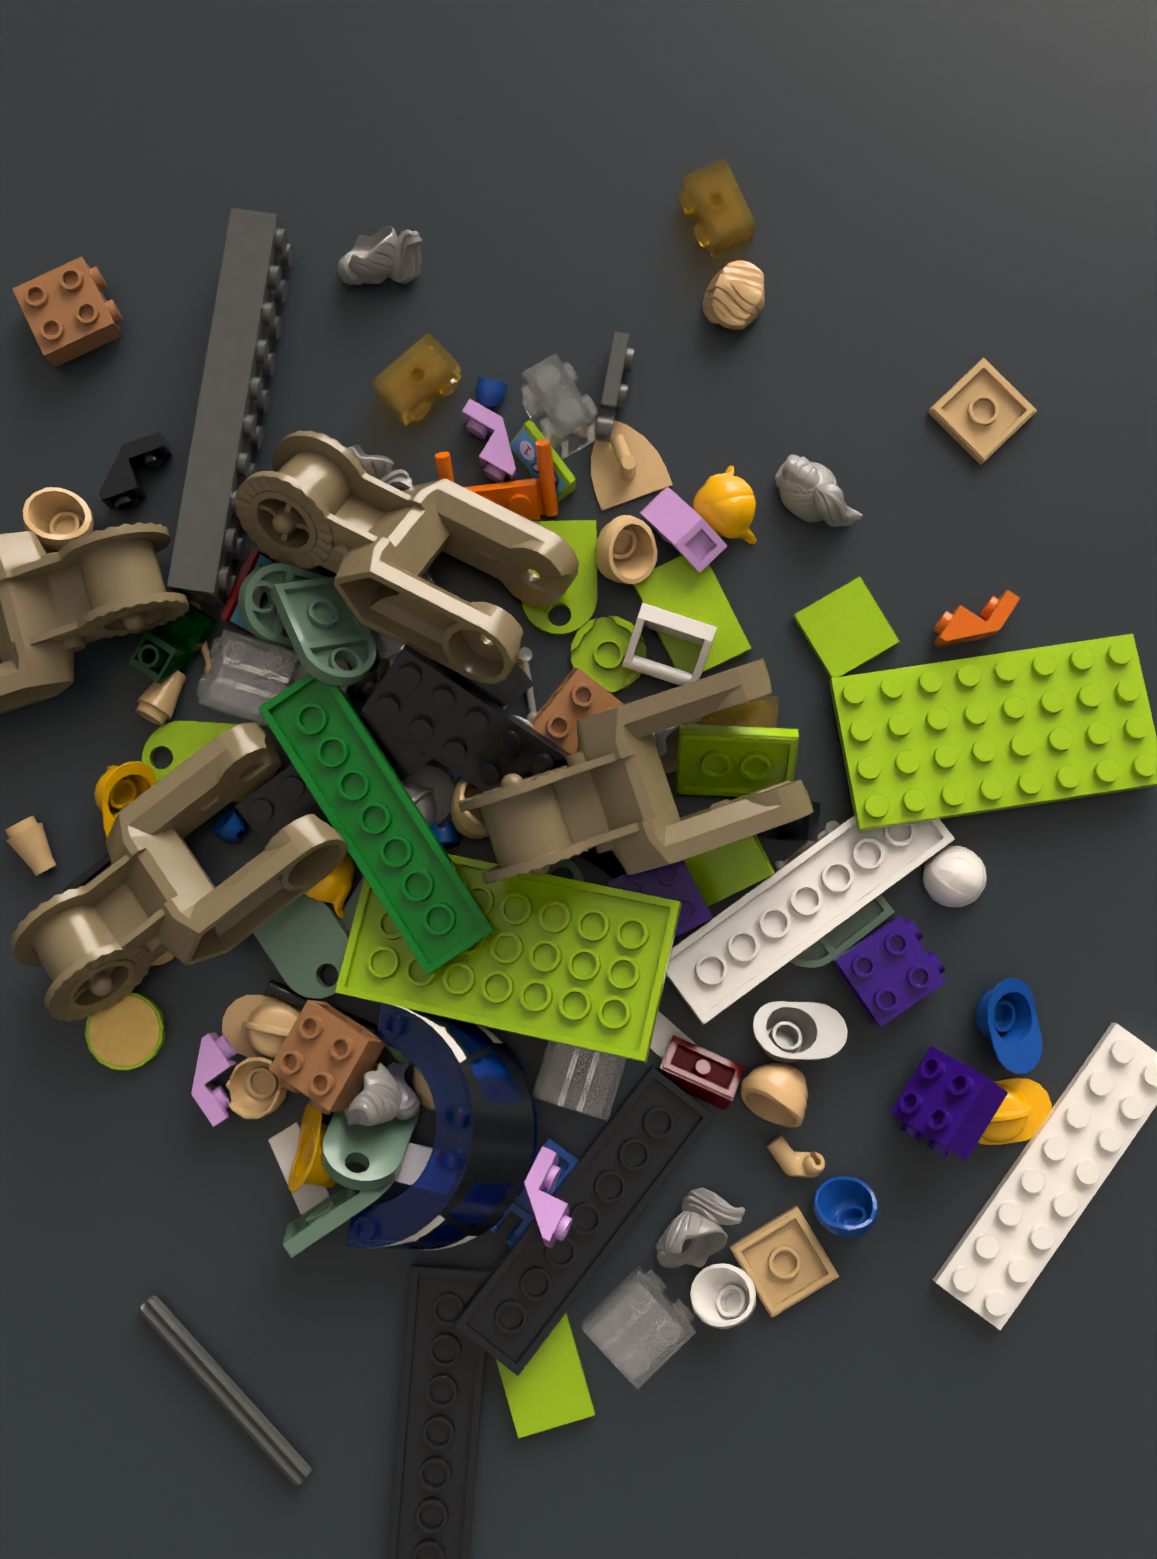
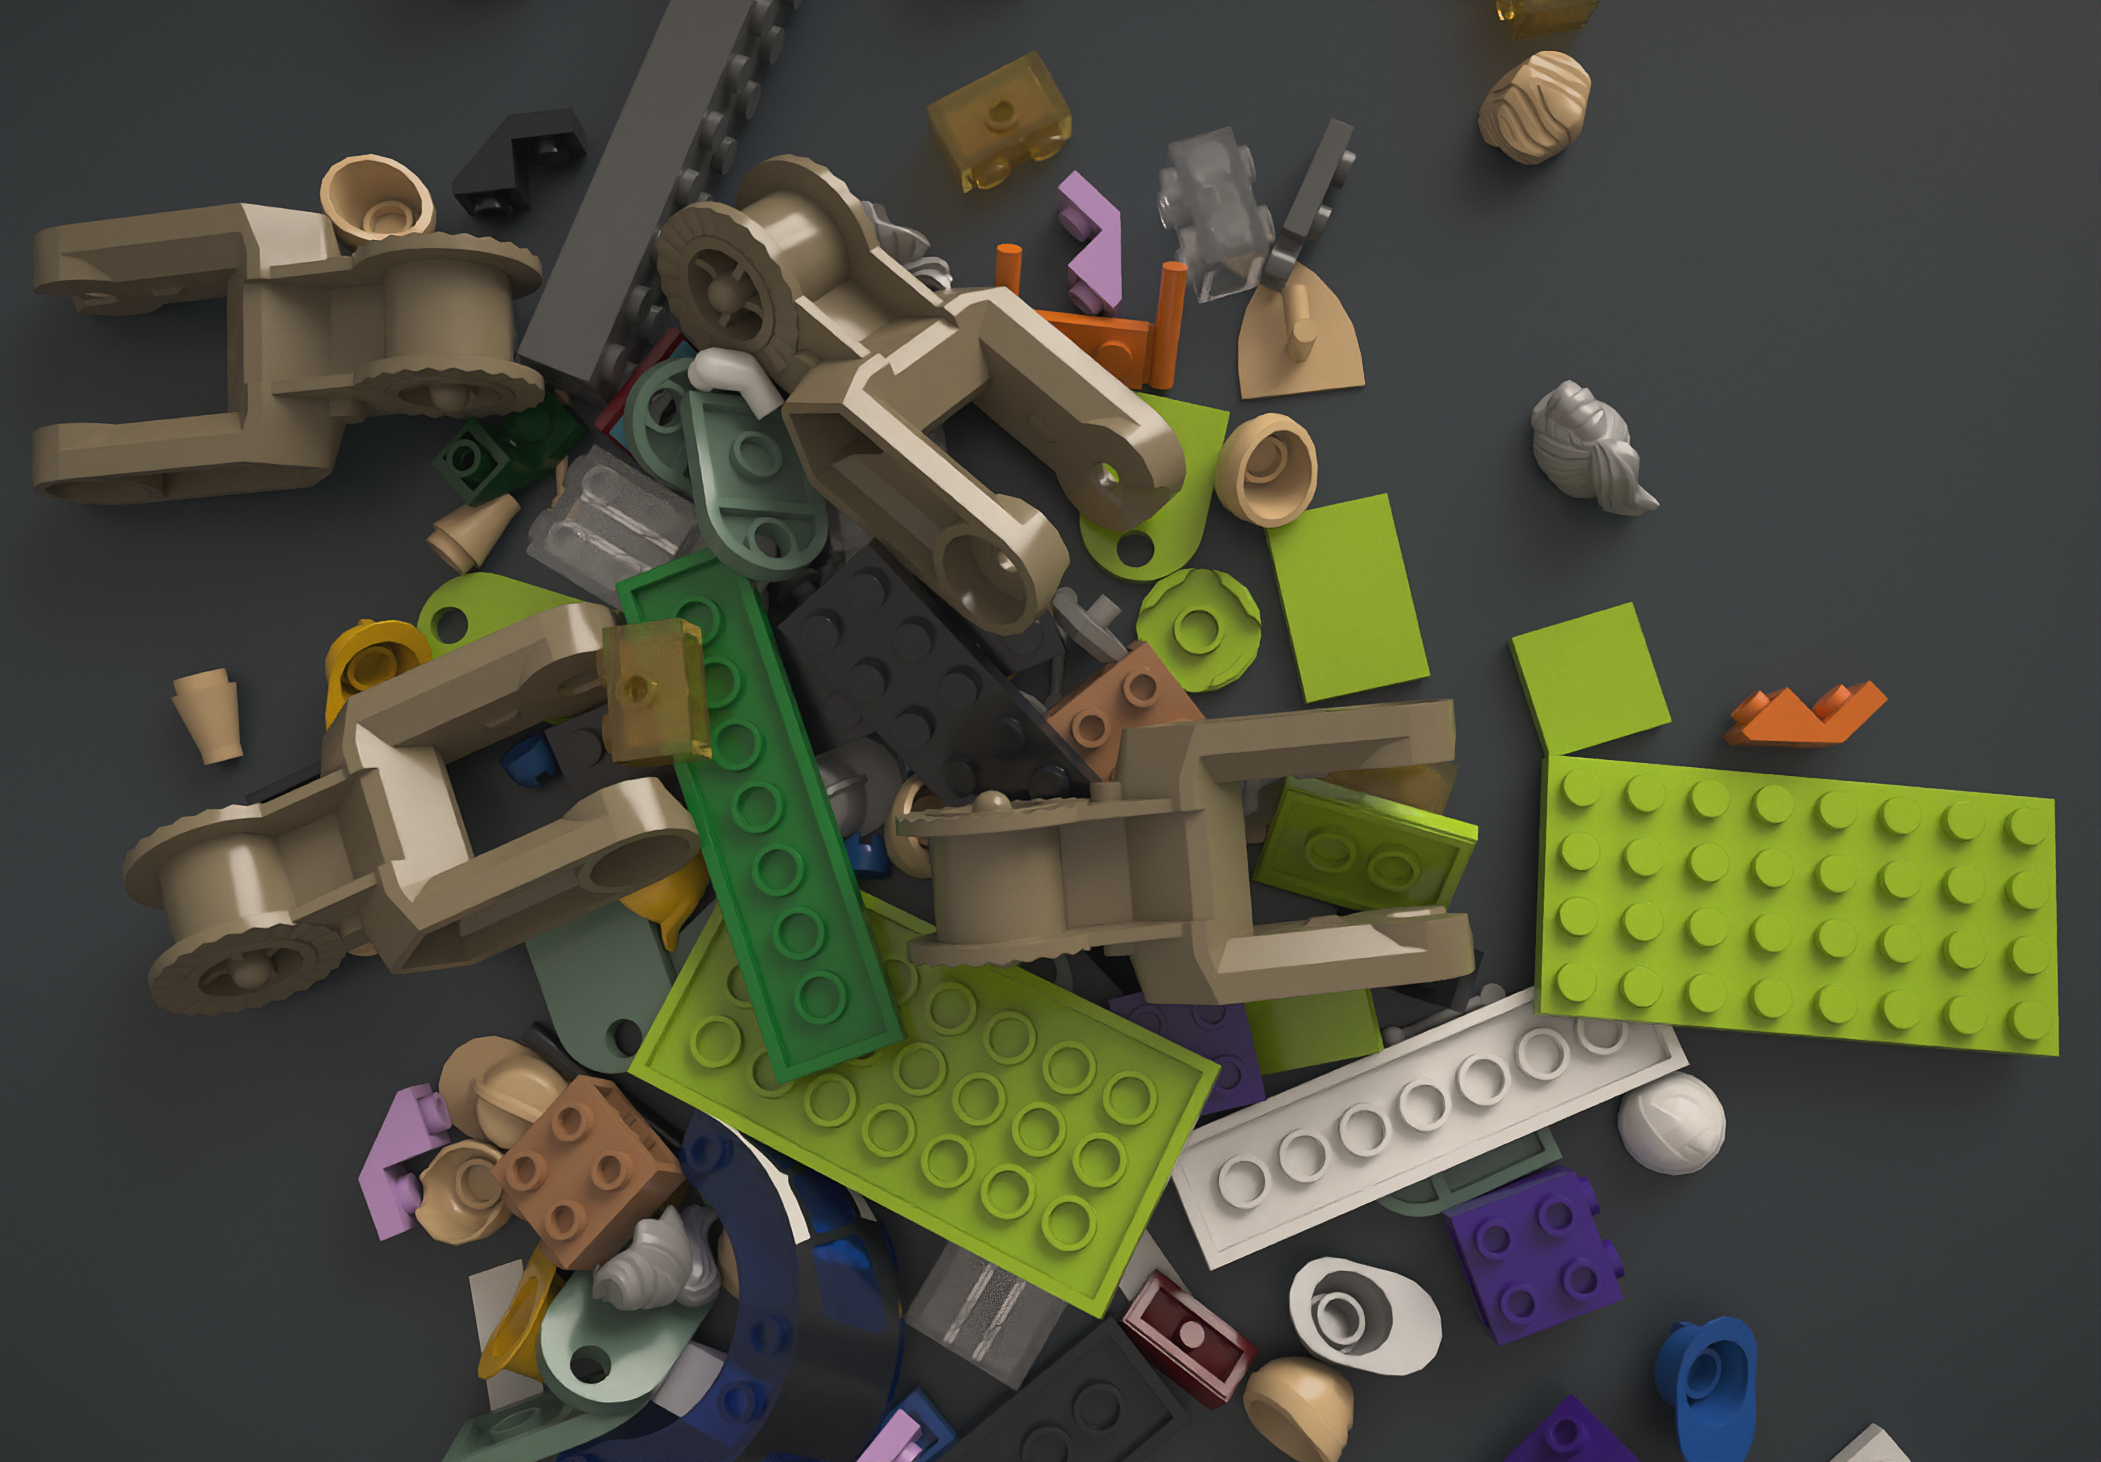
camera: 15 degrees right, 0 degrees up
(126, 1033) = (286, 1051): pearl gold tile -> none
(299, 566) = (735, 372): none -> white arm
(299, 766) = (654, 693): none -> clear yellow brick
(490, 391) = (1110, 169): blue hinge -> none
(525, 451) = (1143, 275): slope -> none
(544, 666) = (1090, 627): none -> light grey piece
(675, 626) = (1319, 613): white tile -> none
(683, 529) = (1367, 458): lavender slope -> none
(727, 505) = (1443, 440): yellow hair -> none
(982, 411) = (1889, 384): tan tile -> none

